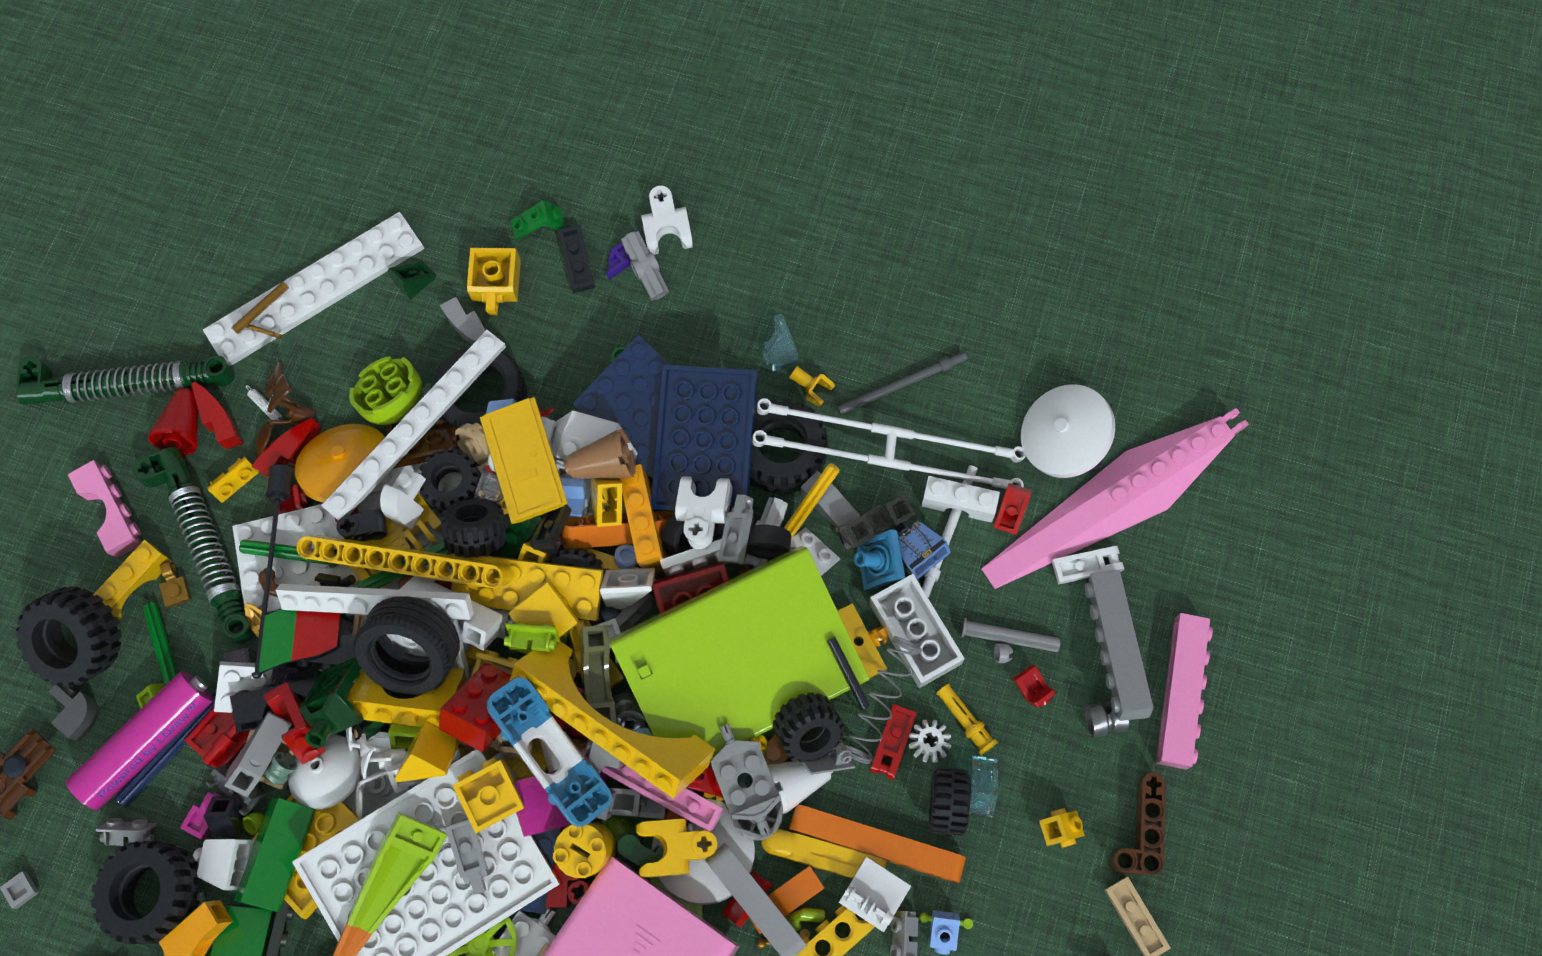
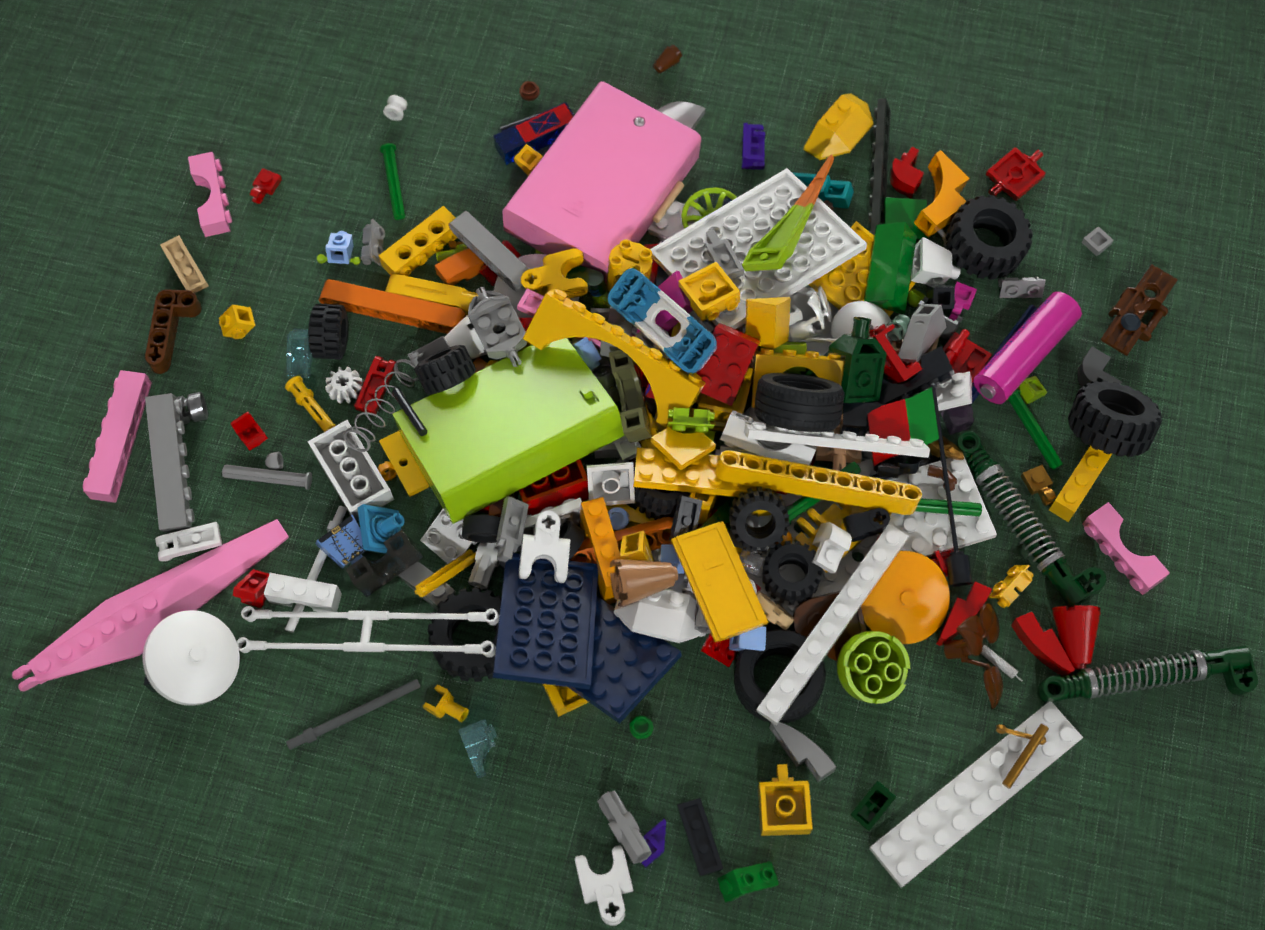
camera: 175 degrees right, 5 degrees down
(875, 894) = (393, 261): white hinge -> none

